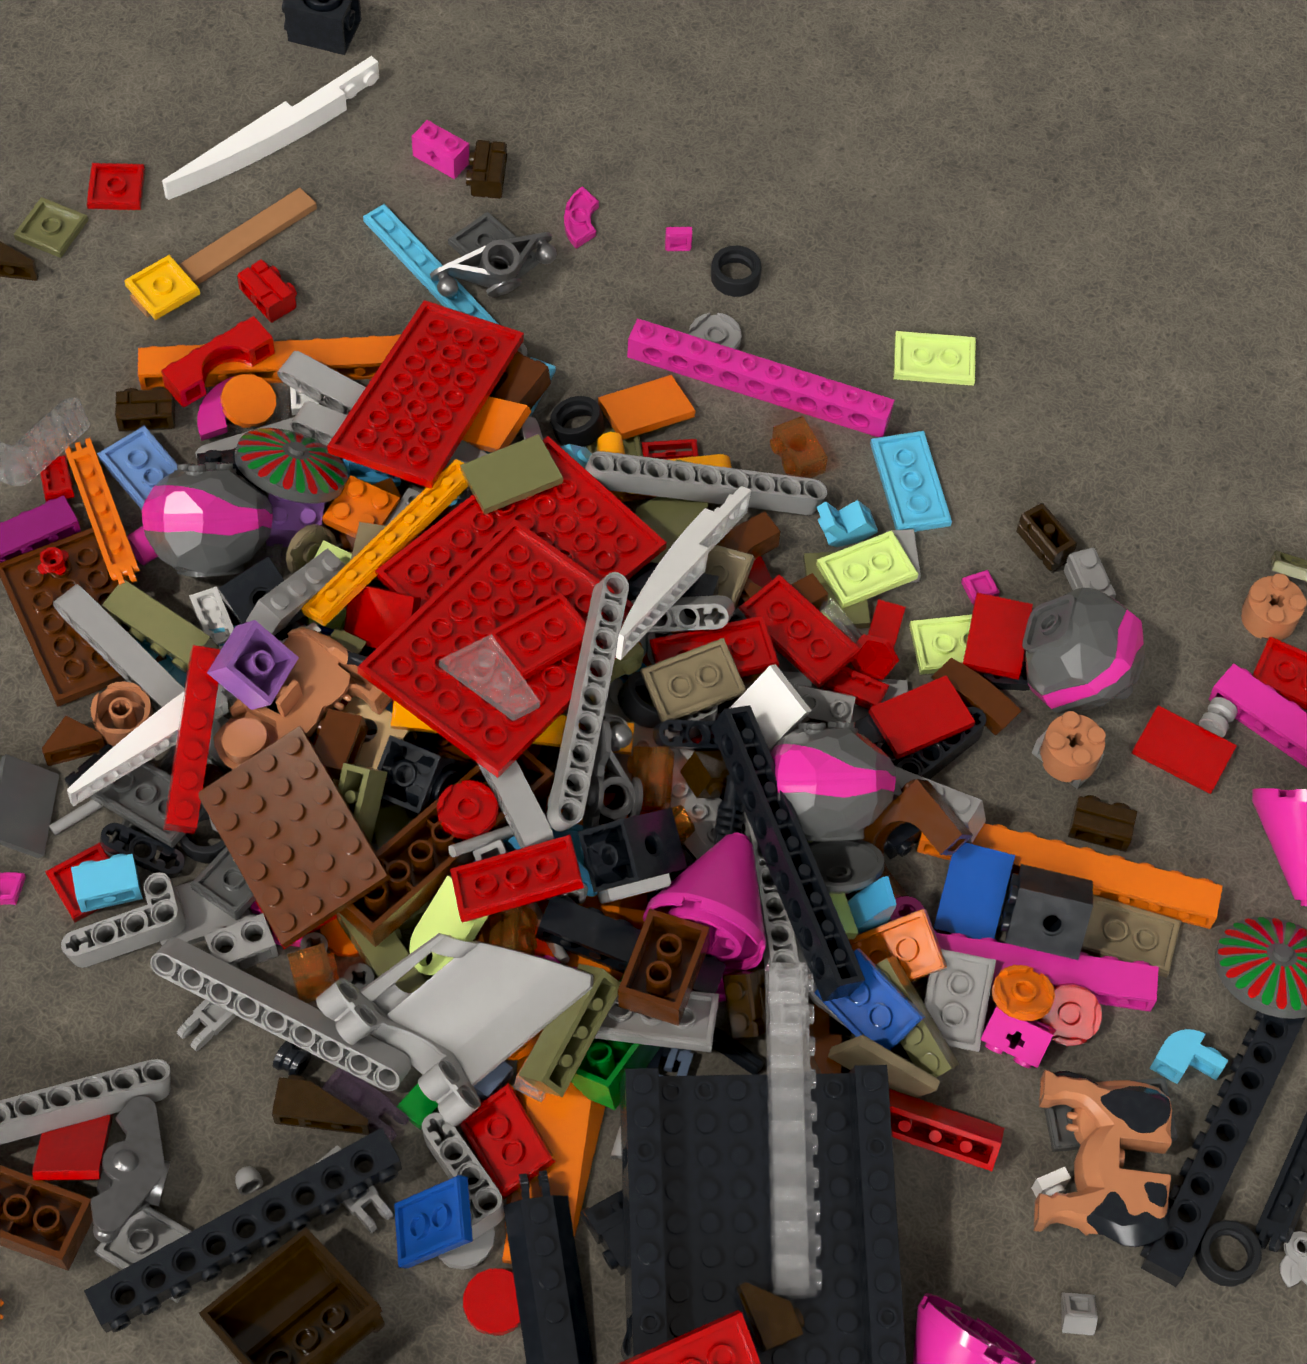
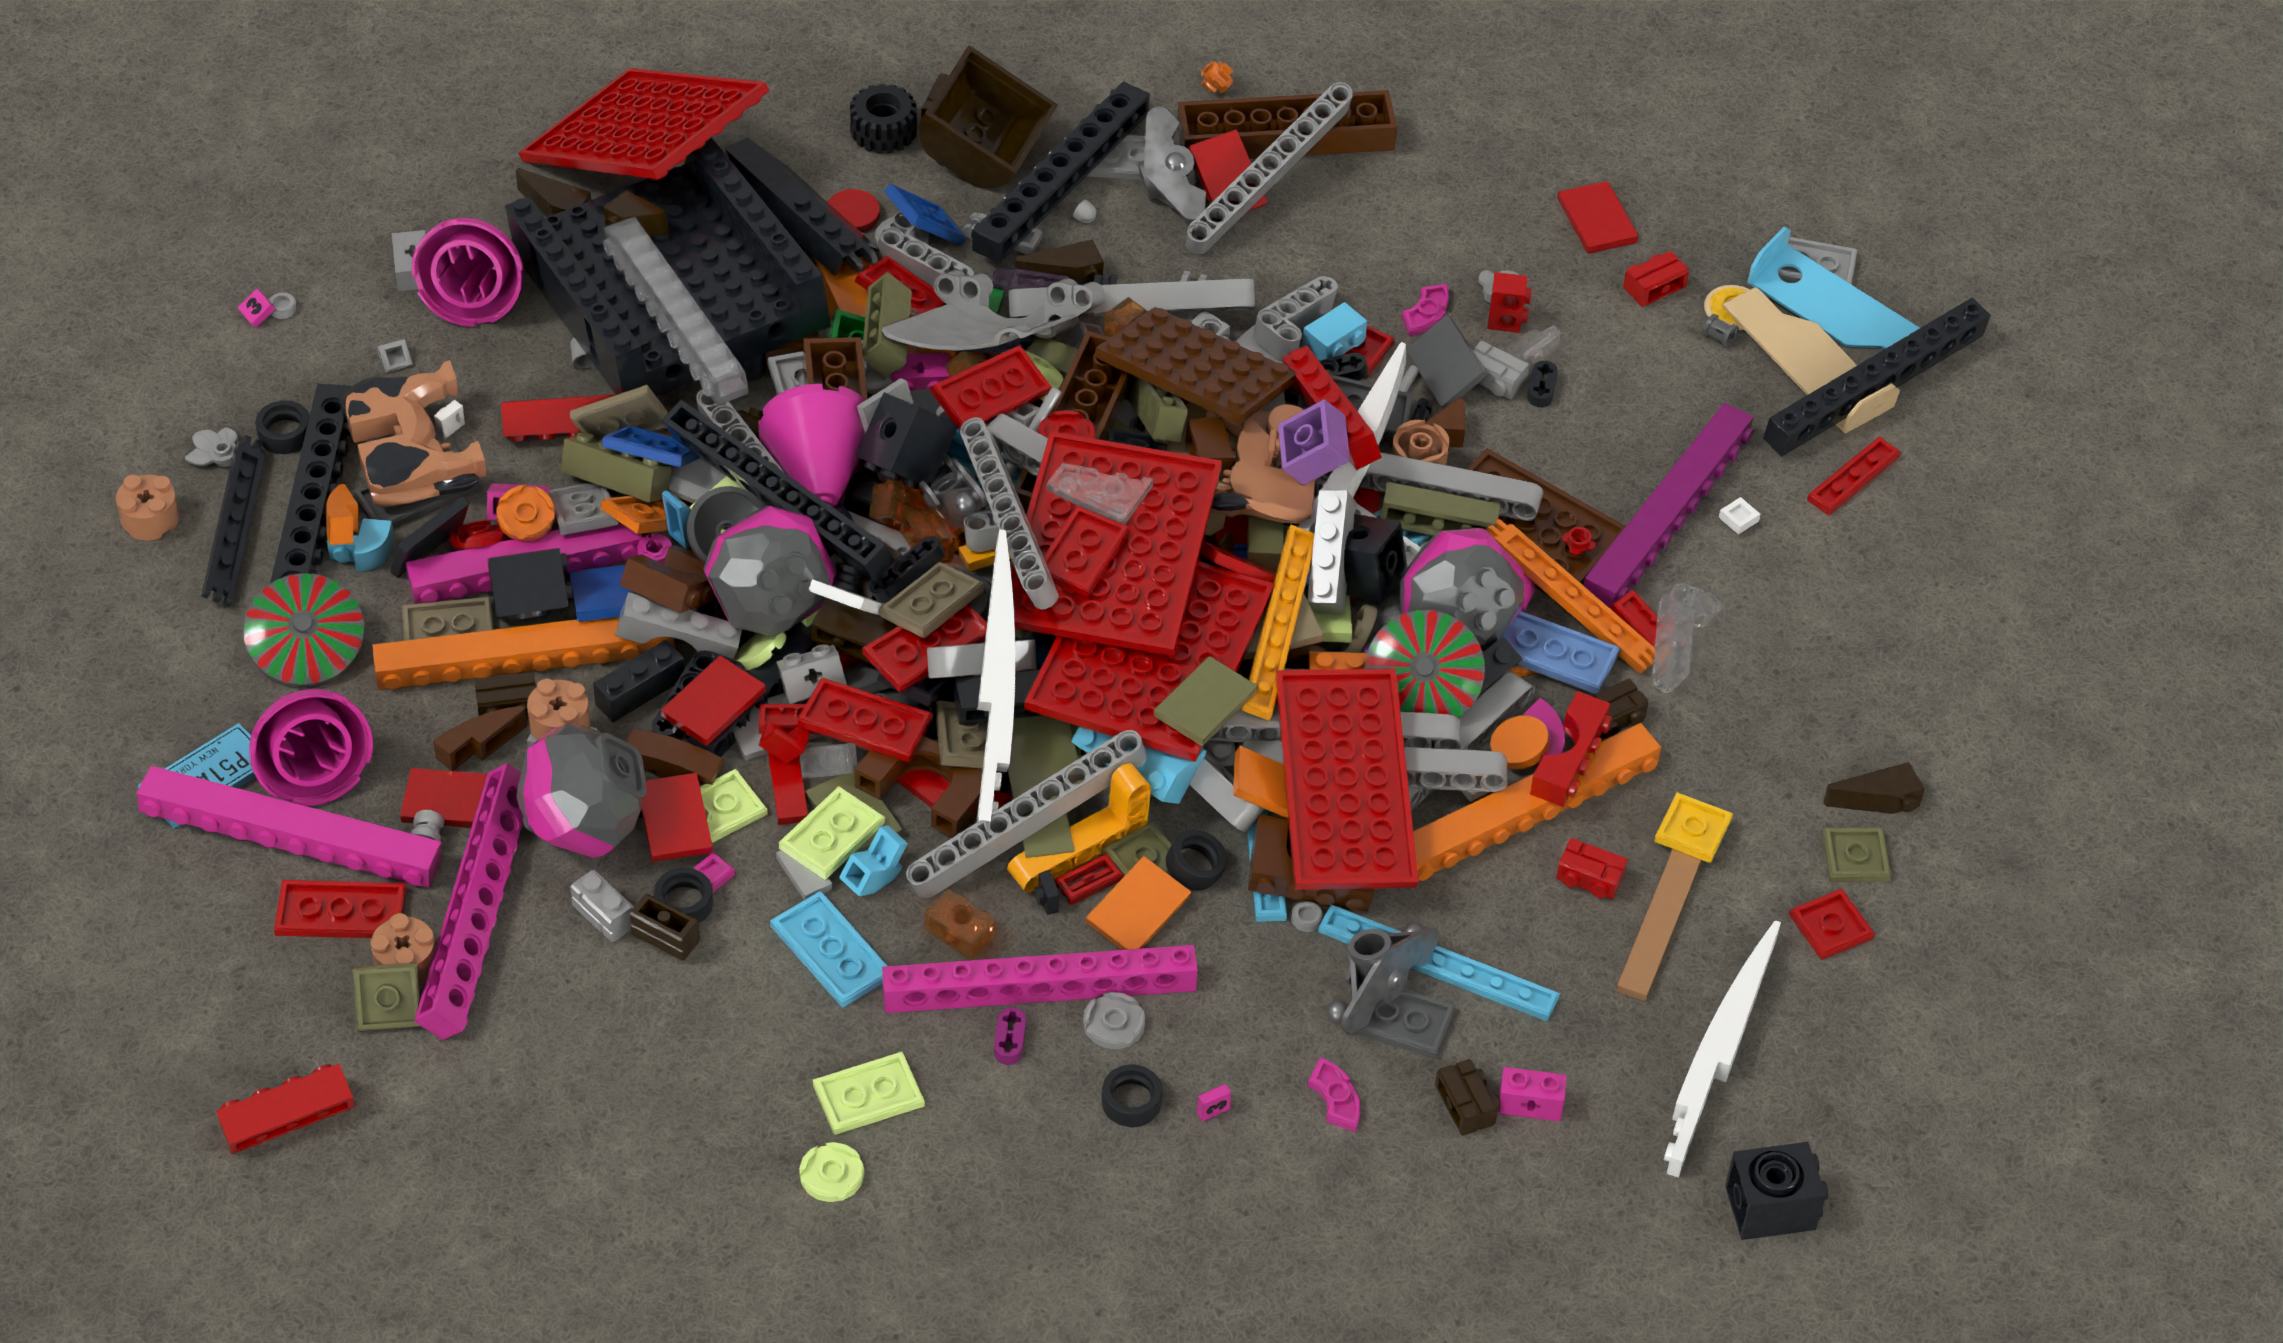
camera: 155 degrees right, 10 degrees down
(714, 444) = (1047, 893): none -> black plate
(808, 357) = (1003, 1035): none -> magenta beam
(986, 781) = (638, 681): none -> black brick
(989, 319) = (831, 1172): none -> yellowish green tile
(1020, 550) = (687, 878): none -> black tyre
(1123, 1020) = (429, 536): none -> black tile
(1144, 792) = (479, 736): none -> reddish brown slope
(1196, 630) = (473, 906): none -> dark pink brick
(1208, 1078) = (341, 516): none -> orange slope

